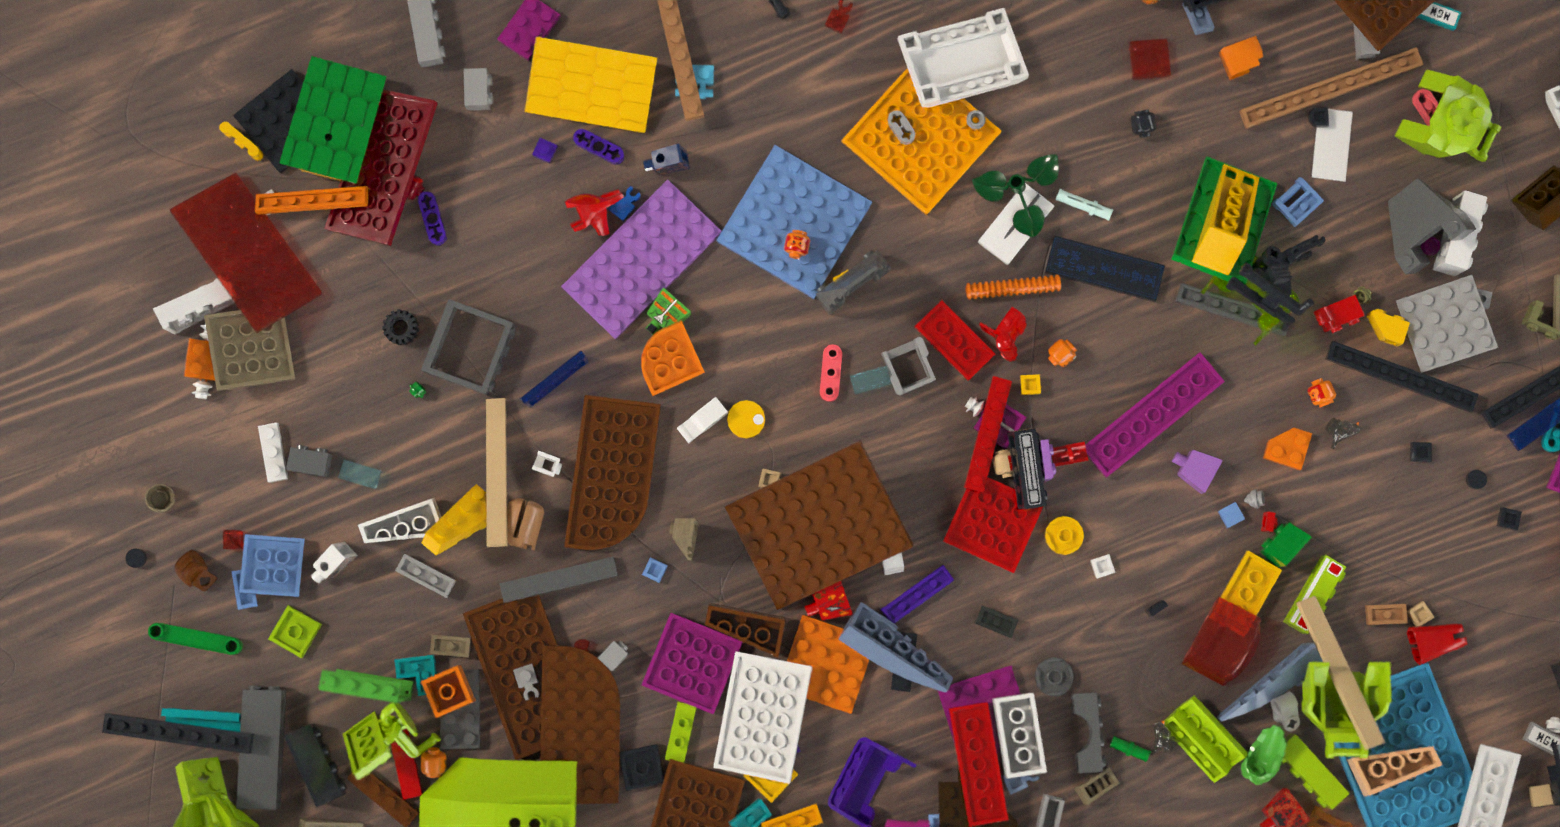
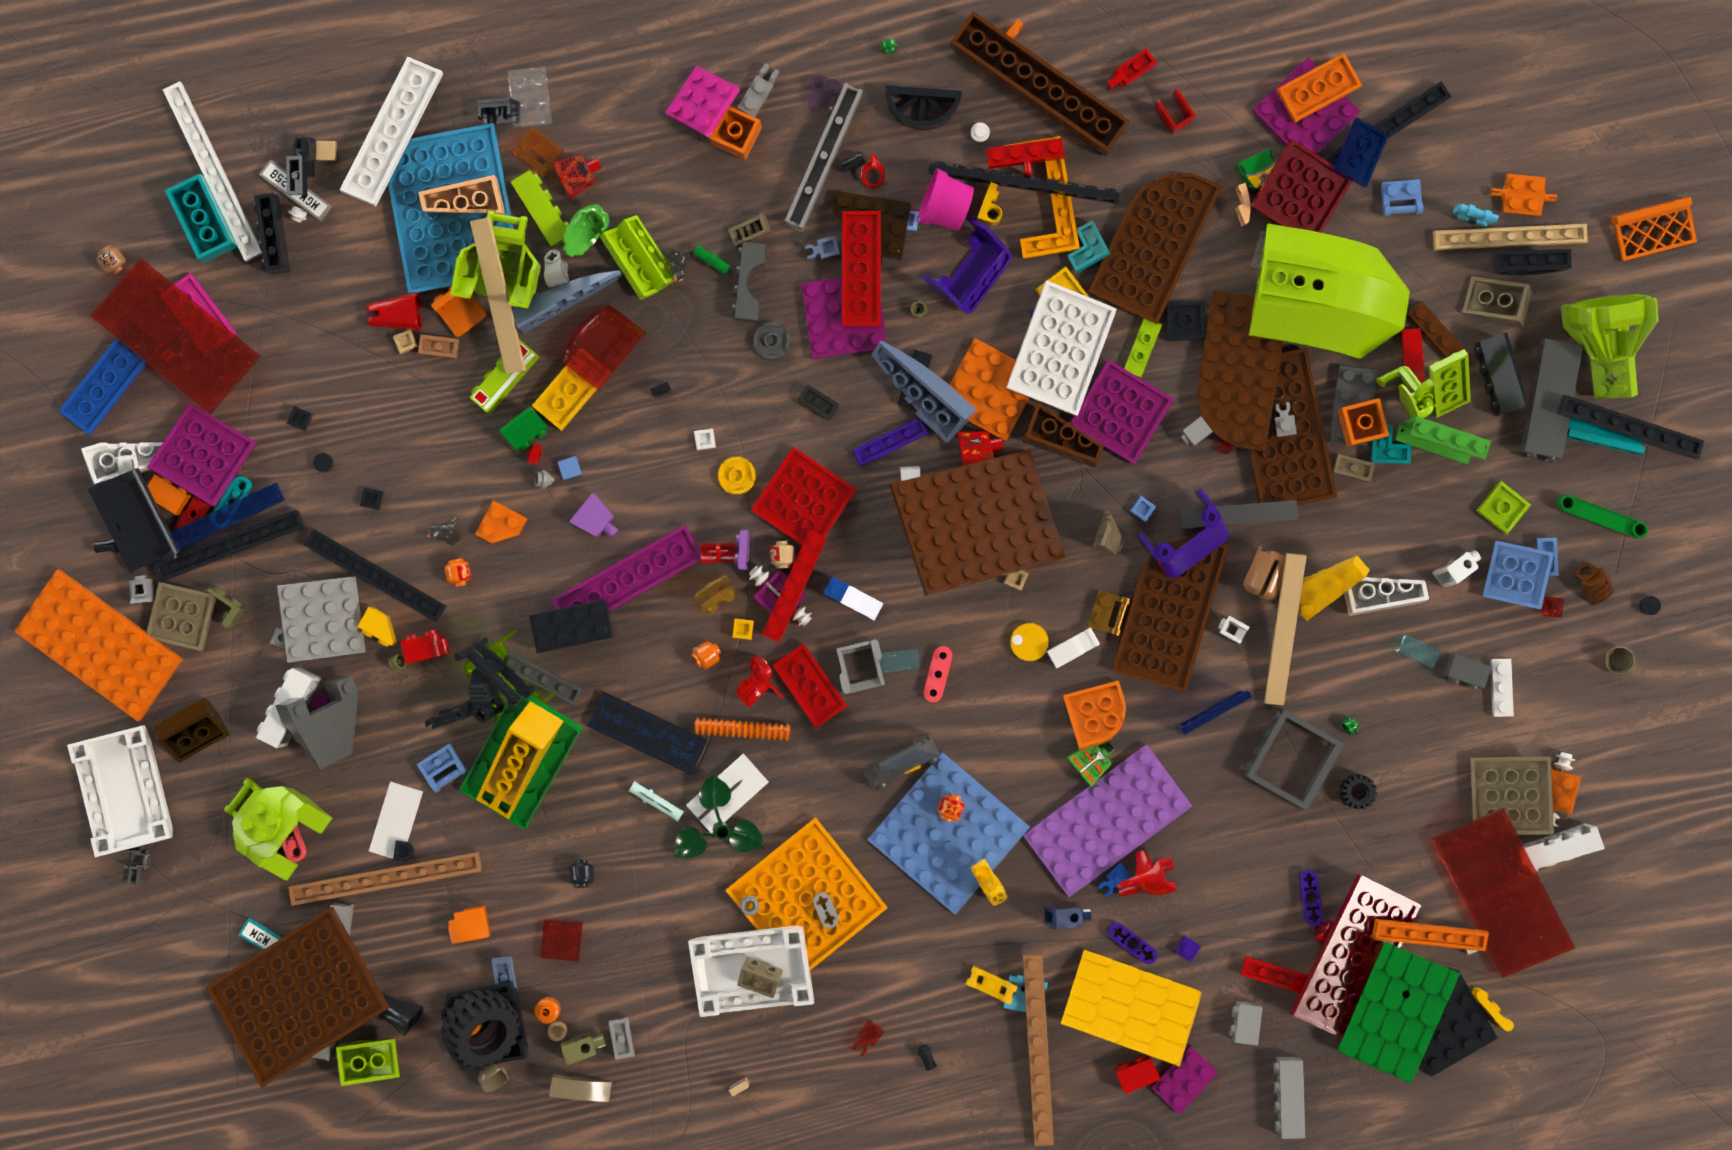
camera: 175 degrees left, 5 degrees up
(425, 575) = (1368, 540): light grey plate -> none
(433, 762) = (1386, 358): orange head -> none
(458, 139) = (1273, 974): none -> red plate
(575, 24) = (1136, 1073): none -> red brick
(580, 553) = (1174, 562): none -> dark purple windscreen
(678, 461) = (1103, 609): none -> pearl gold plate
(728, 84) = (992, 984): none -> yellow plate
(747, 178) = (989, 882): none -> yellow piece
(912, 728) = (923, 309): none -> olive plate
(927, 433) = (853, 598): none -> slope
(954, 52) = (759, 977): none -> dark tan bracket
(1019, 735) = (817, 288): white brick -> none
(1027, 469) = (763, 544): black brick -> none
(1062, 413) = (717, 596): none -> clear yellow plate
(1199, 357) = (572, 626): none -> black brick
(1372, 648) = (459, 312): none -> orange bracket

